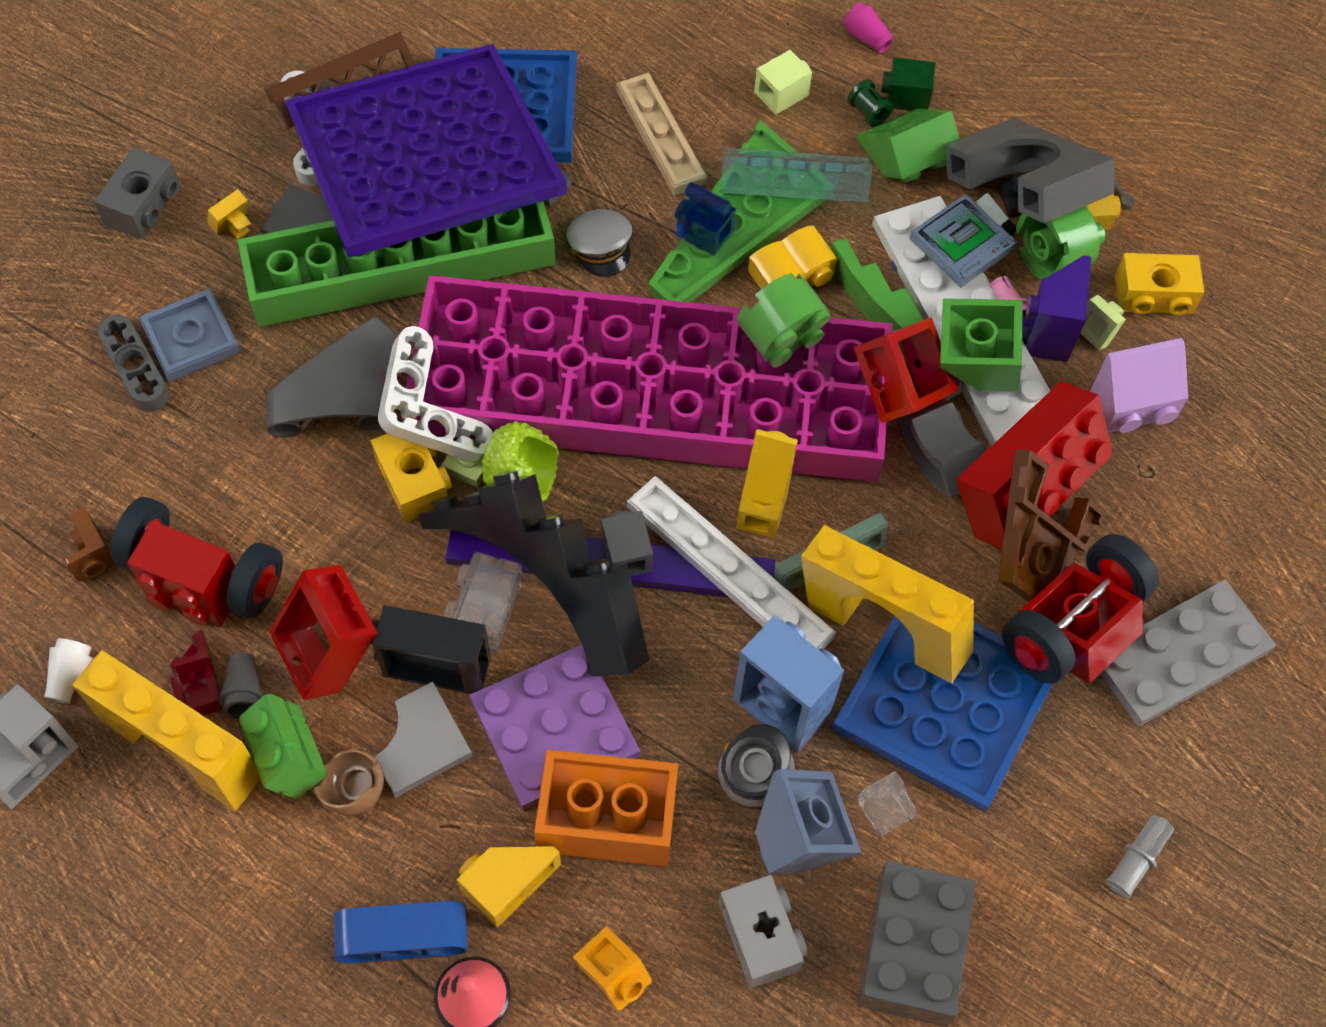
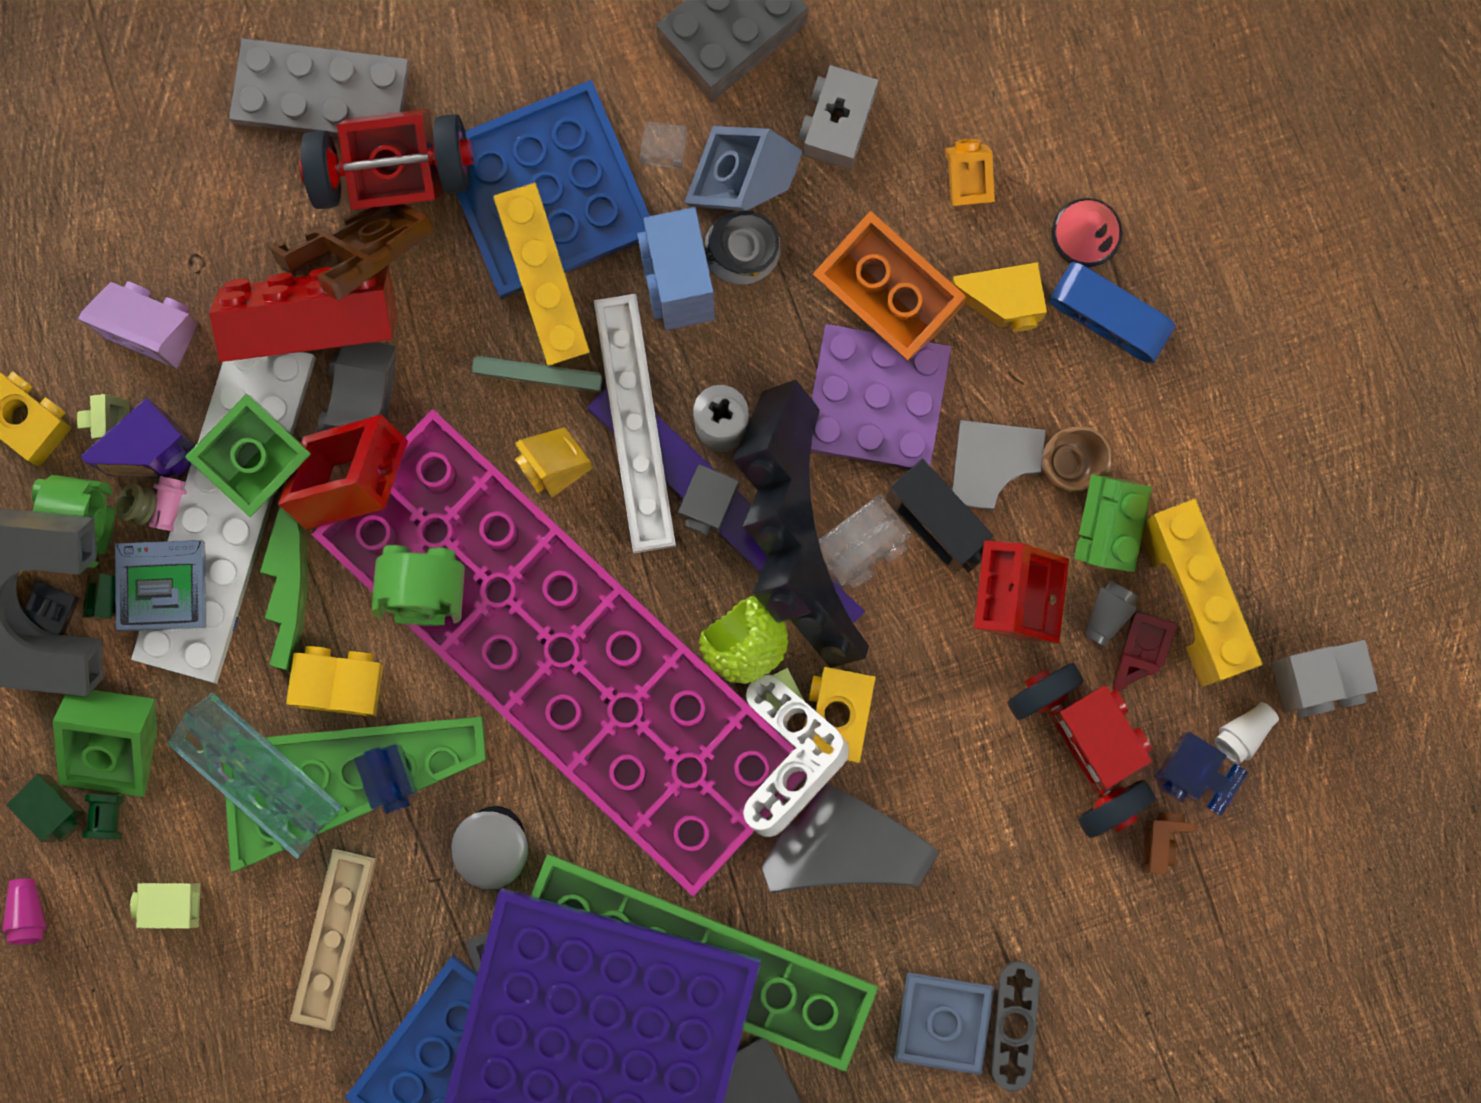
camera: 140 degrees left, 20 degrees up
(94, 617) = (1193, 768): none -> clear blue brick
(664, 606) = (714, 403): none -> light grey piece
(1027, 282) = (136, 504): none -> olive bush

